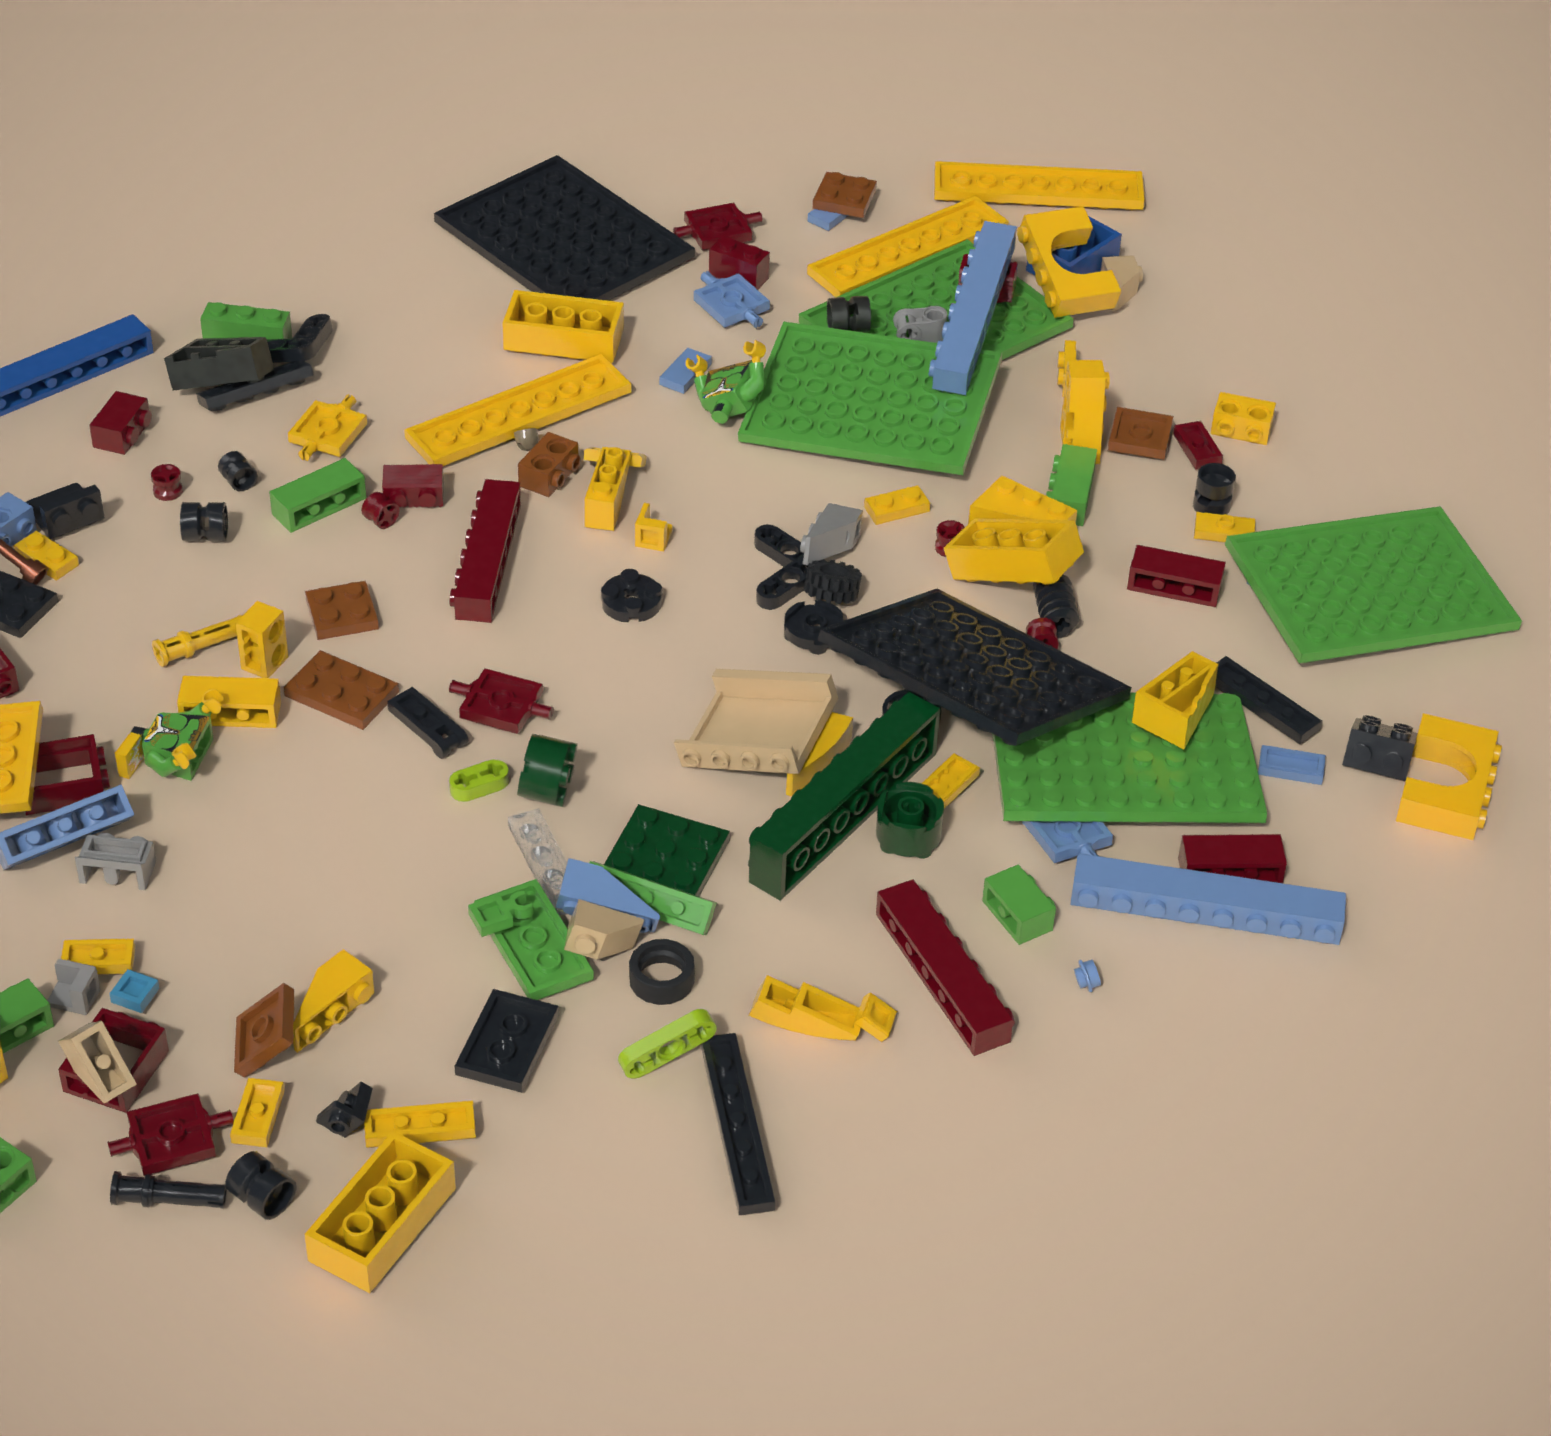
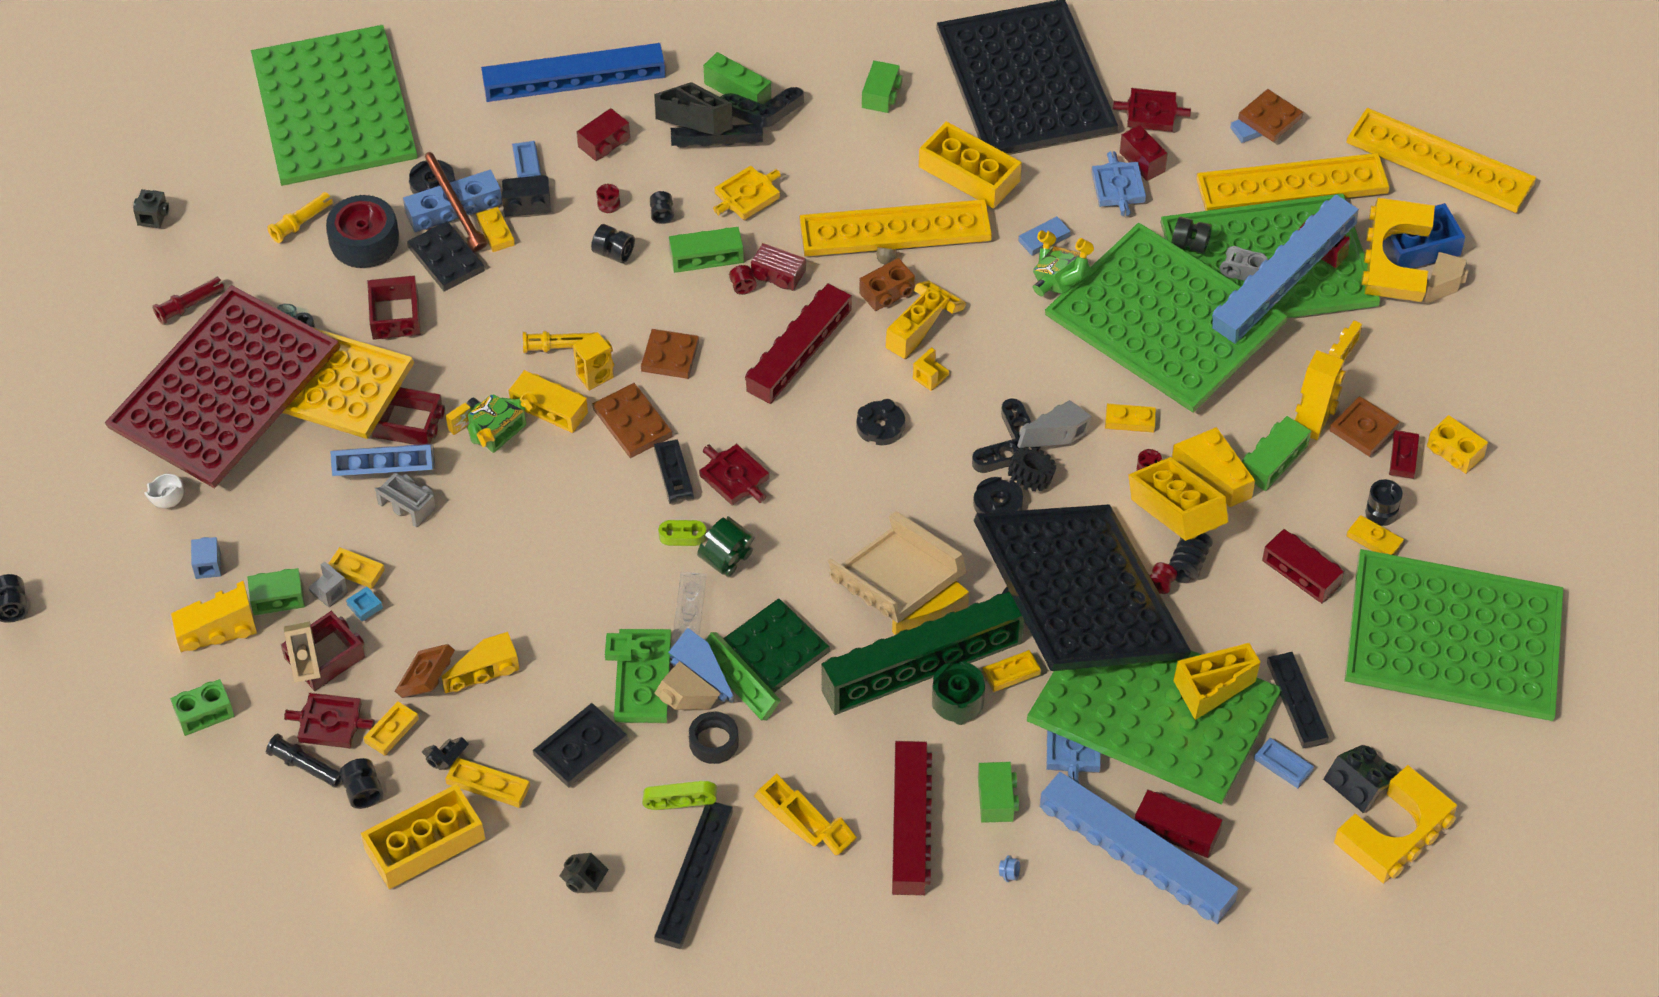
camera: 30 degrees right, 10 degrees up
(38, 475) = (526, 159): none -> medium blue tile
(413, 287) = (881, 86): none -> bright green brick
(609, 1170) = (583, 872): none -> pearl dark grey brick

